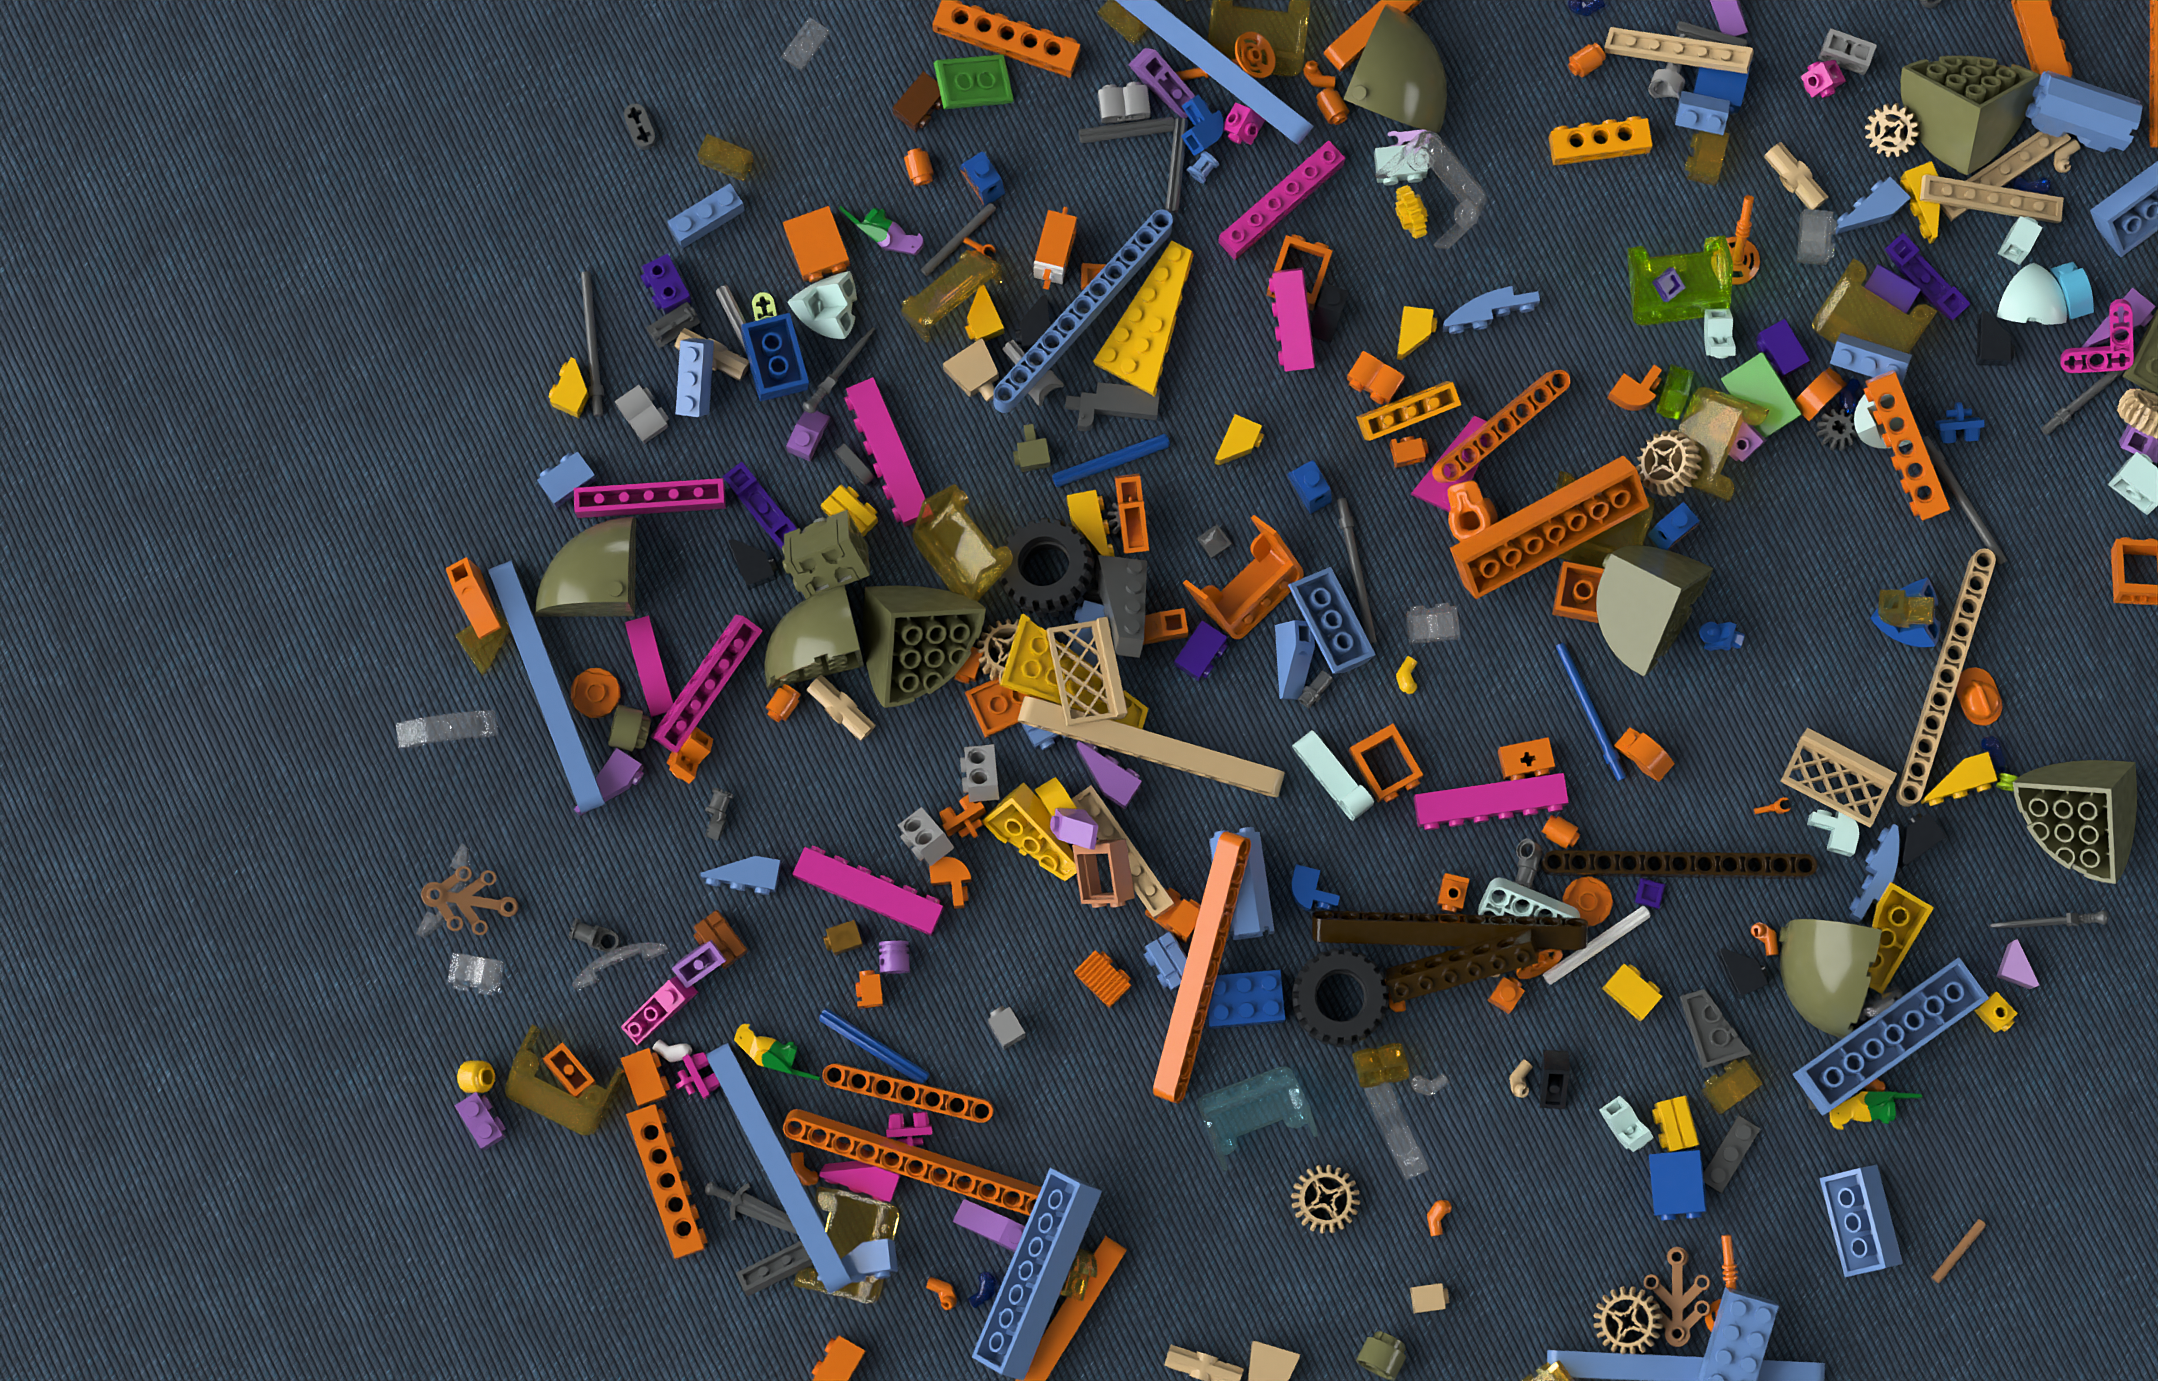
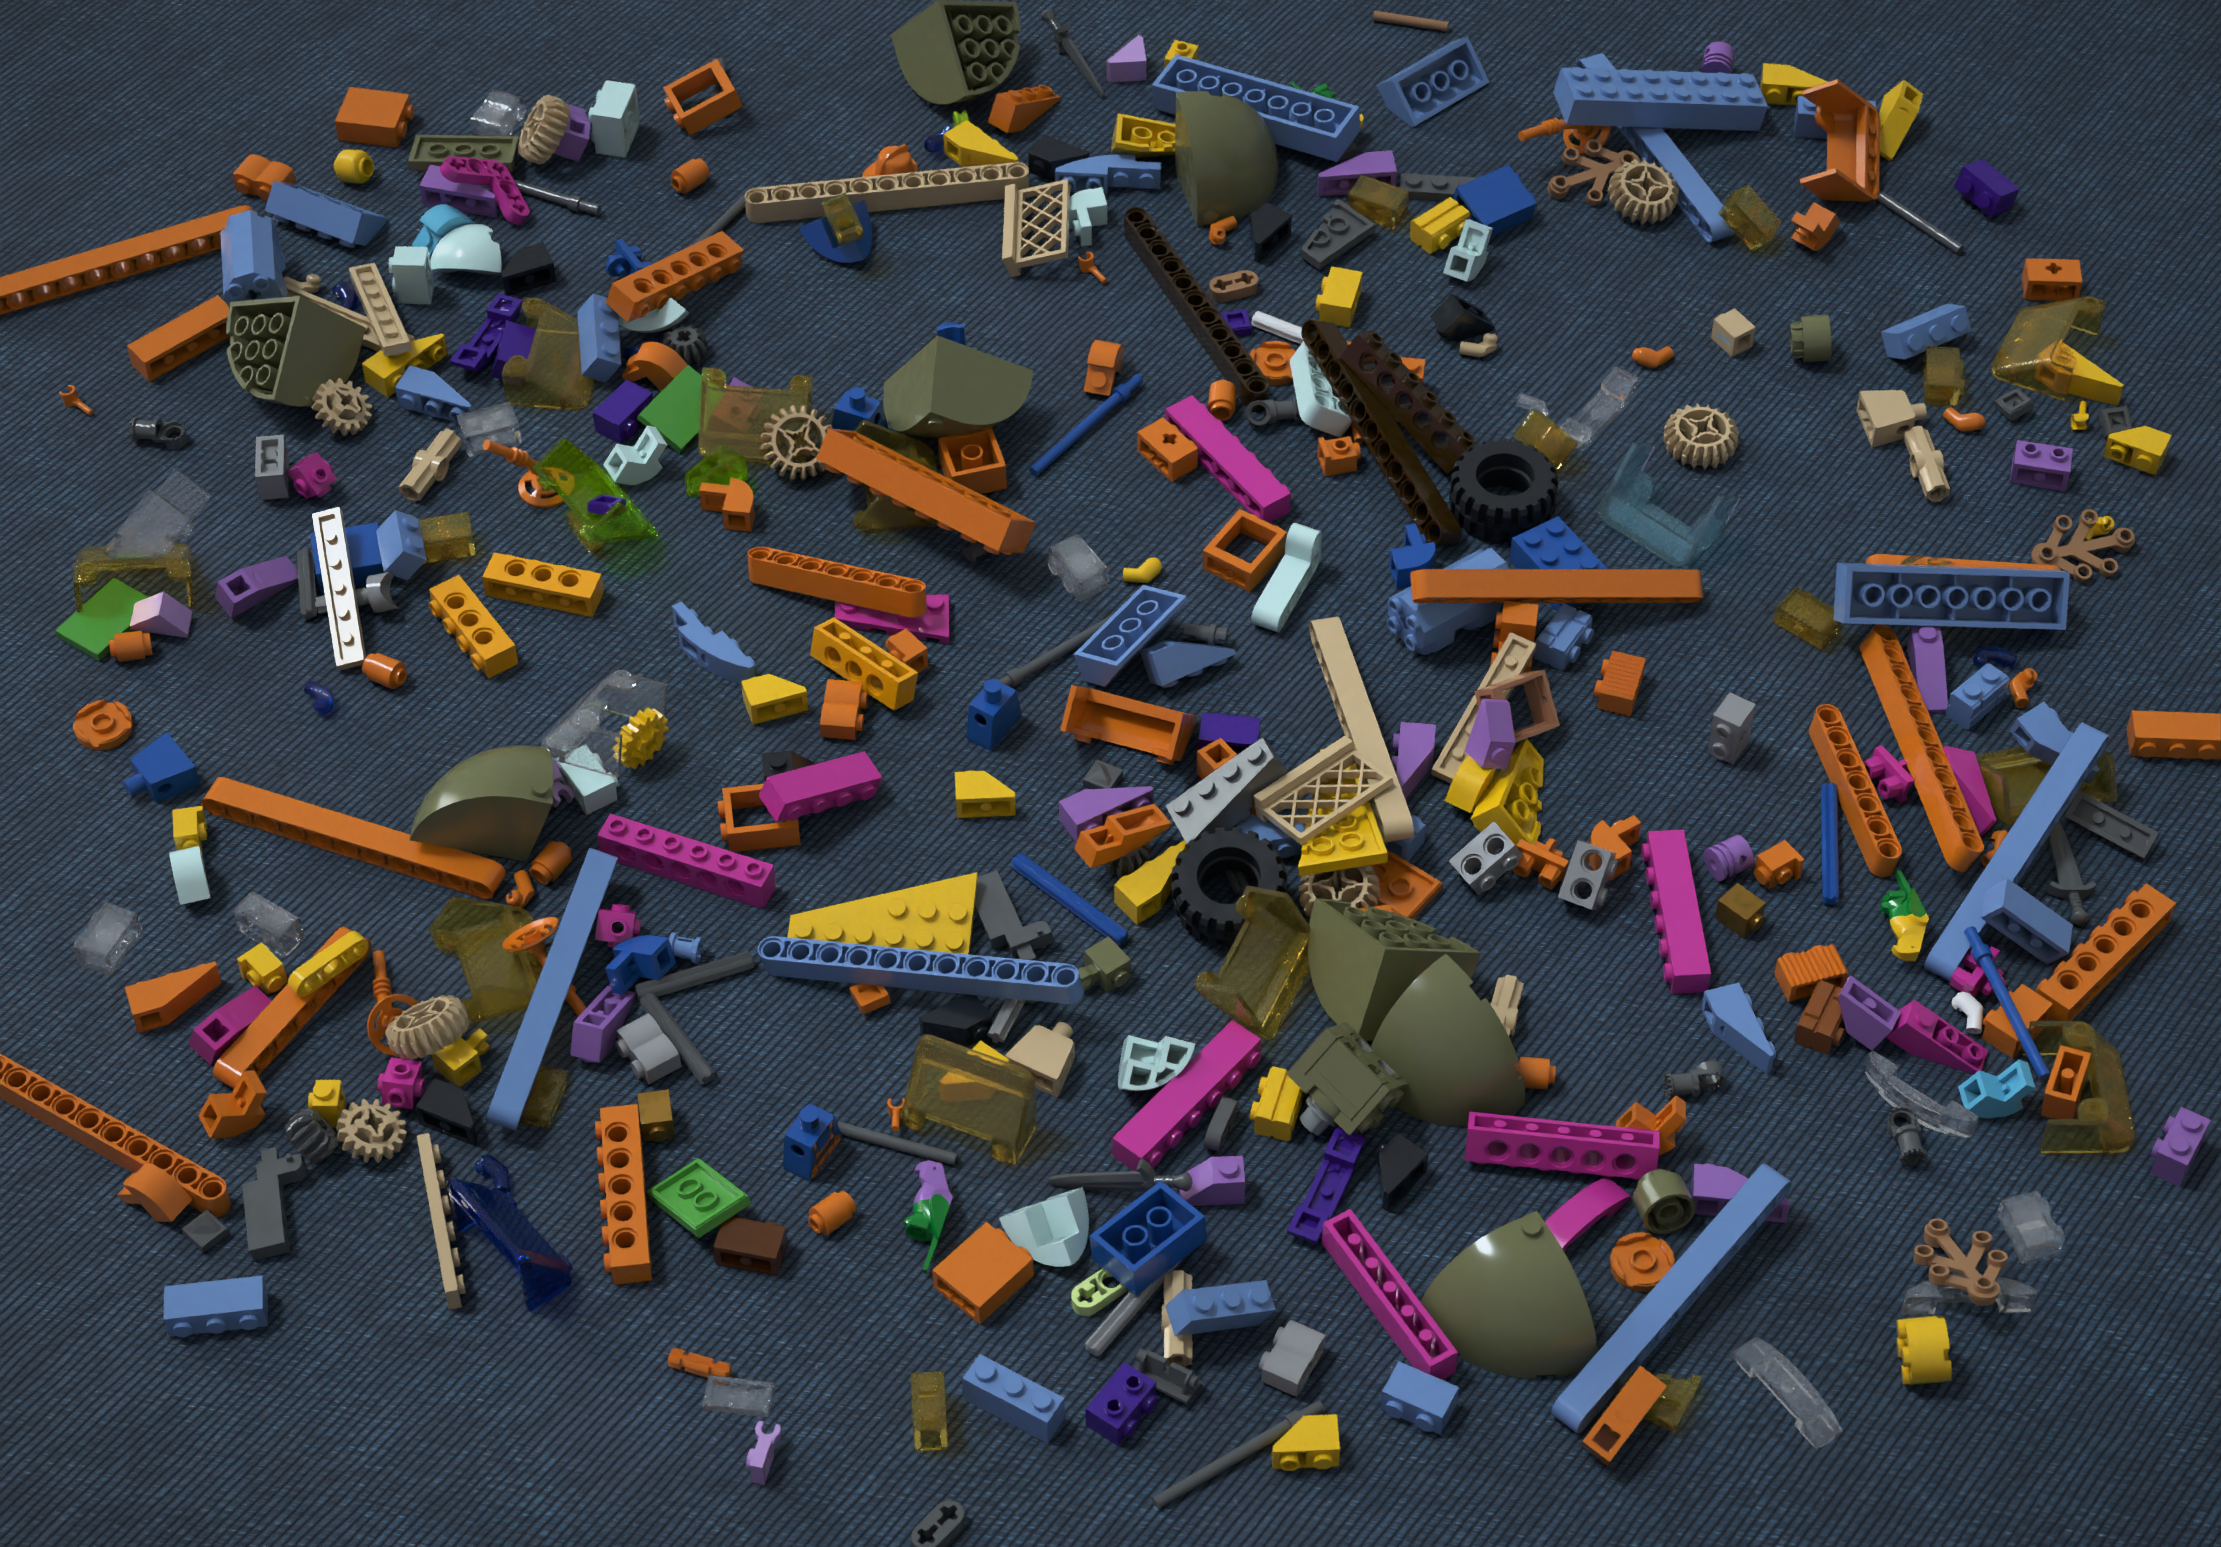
camera: 115 degrees left, 30 degrees down
(416, 830) = (1924, 1350): none -> yellow brick
(475, 1076) = (2139, 1171): yellow head -> none
(591, 1018) = (1997, 1095): none -> medium azure brick
(701, 1077) = (1983, 957): none -> blue bar
(713, 1131) = (2026, 921): none -> medium blue brick
(749, 37) = (761, 1458): none -> lavender plate
(763, 955) = (1802, 971): none -> orange brick
(844, 31) = (698, 1364): none -> orange axle
(926, 438) = (1150, 1063): none -> light aqua brick
(946, 1246) = (1977, 696): none -> medium blue brick
(1055, 247) = (860, 1028): orange piece -> none
(1061, 84) = (656, 1116): none -> pearl gold brick
(1094, 1164) = (1807, 618): none -> clear yellow brick
(1180, 515) = (1092, 806): none -> medium lavender slope
(1469, 510) = (948, 565): orange piece -> none
(1641, 180) = (543, 584): none -> light orange brick
(1699, 914) = (1233, 286): none -> medium nougat beam
(1772, 1097) = (1342, 177): none -> medium lavender slope
(2002, 845) = (1019, 108): none -> orange slope
(2048, 521) = (689, 175): none -> orange brick

